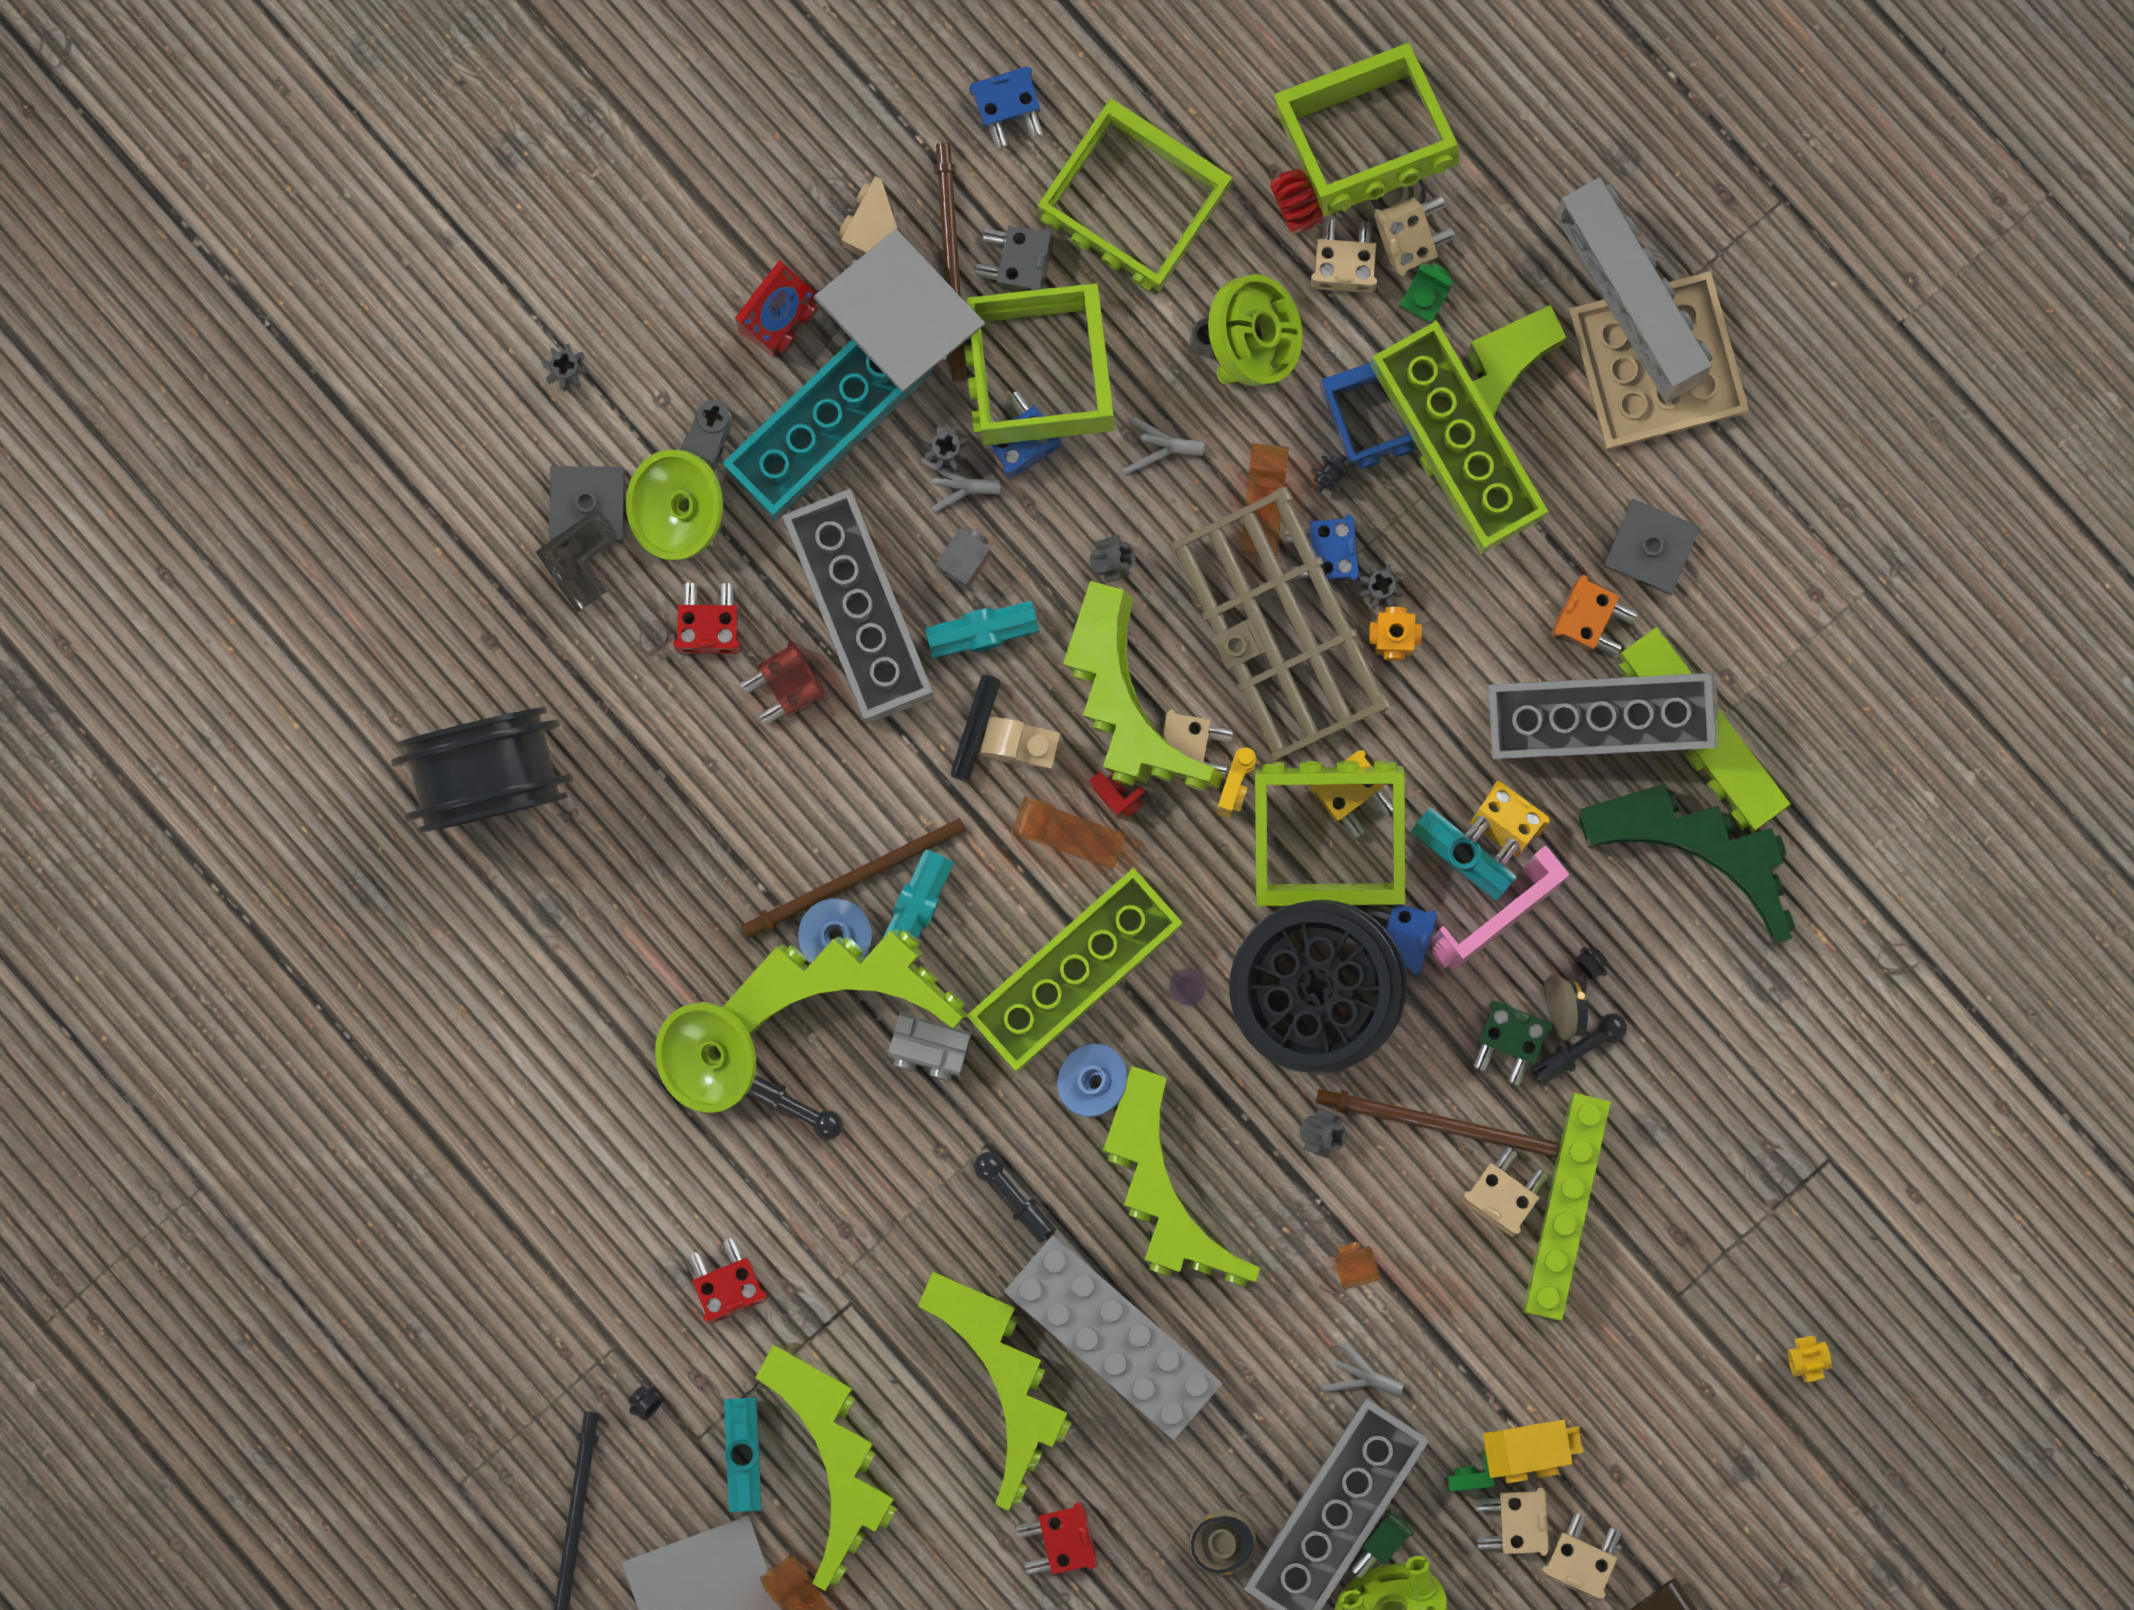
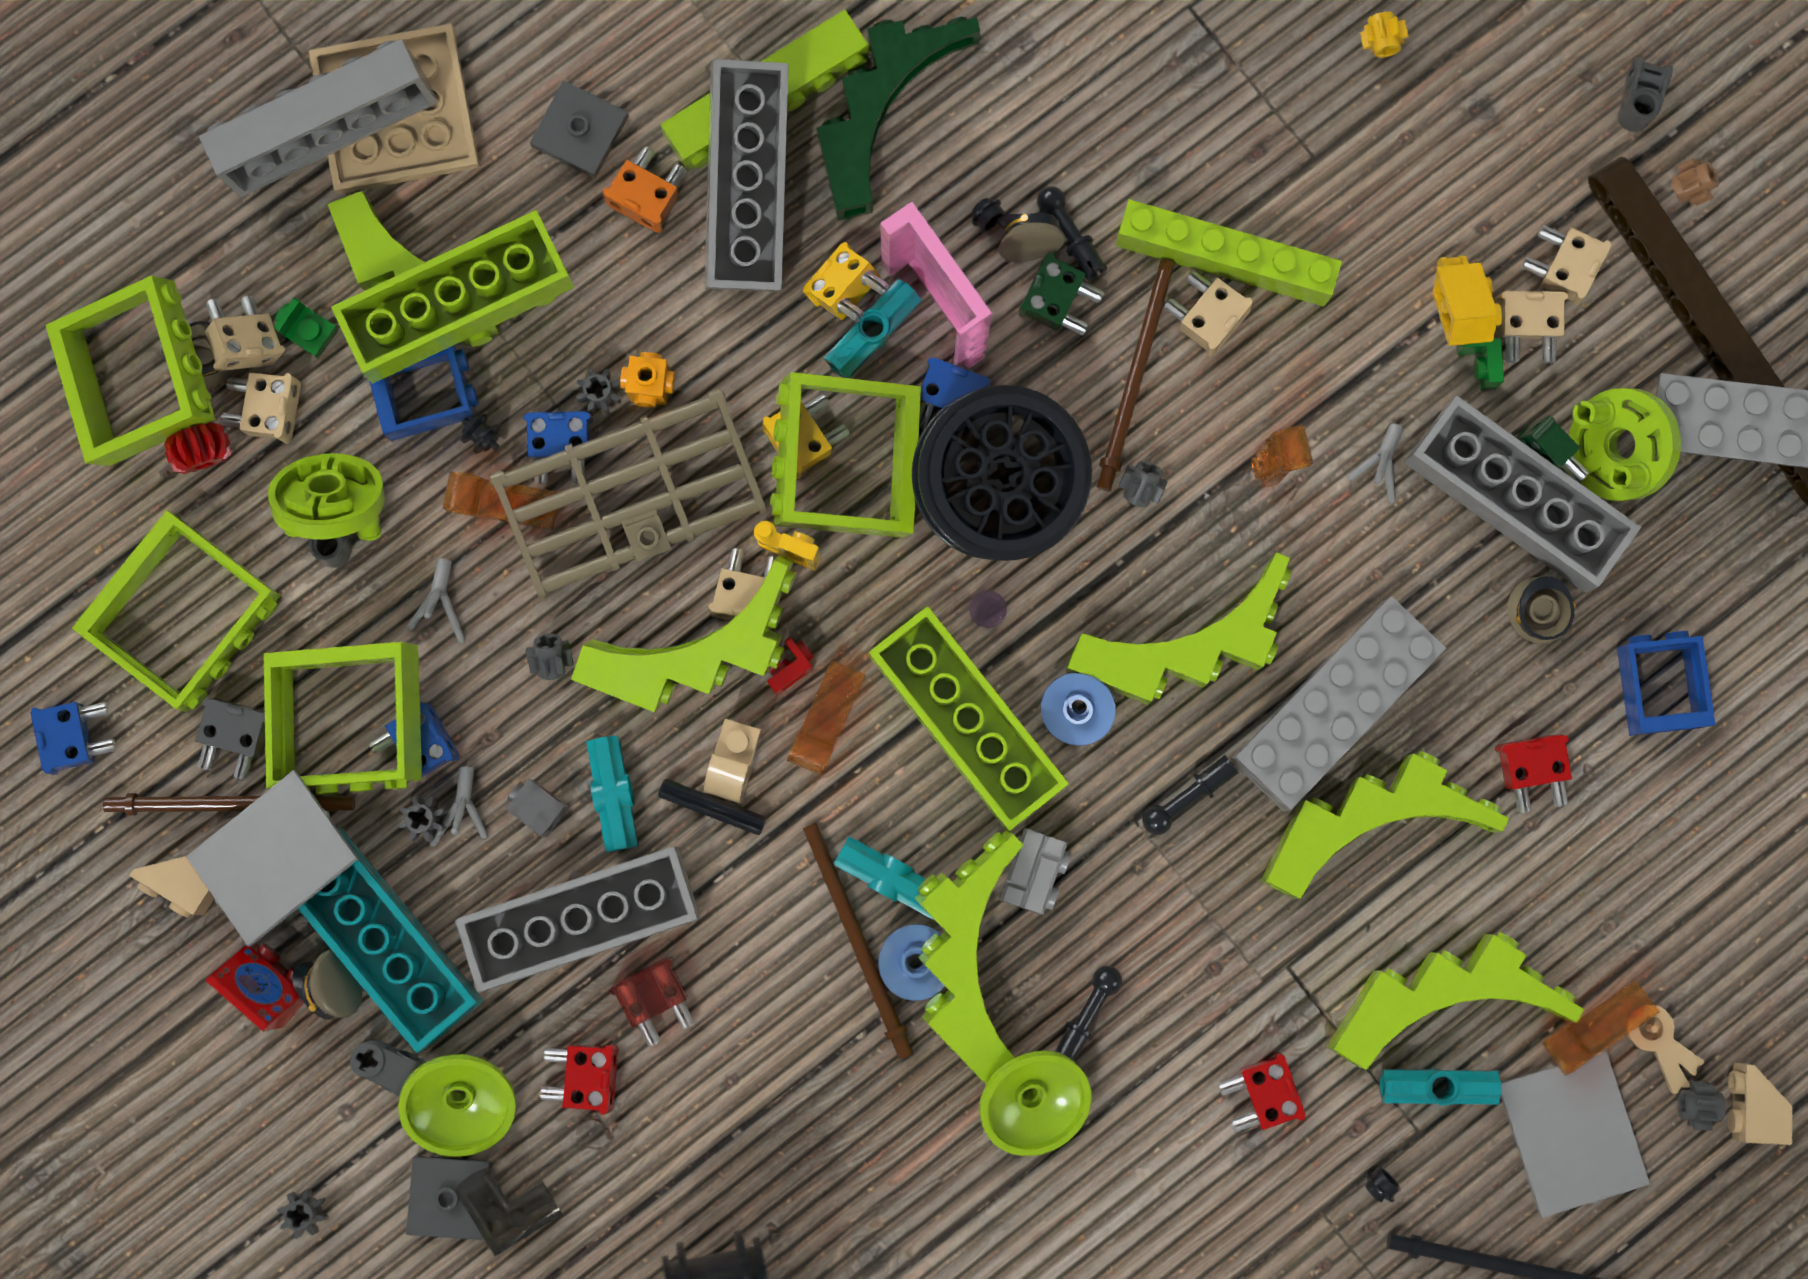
camera: 90 degrees left, 0 degrees up
(779, 373) = (327, 987): none -> dark tan piece

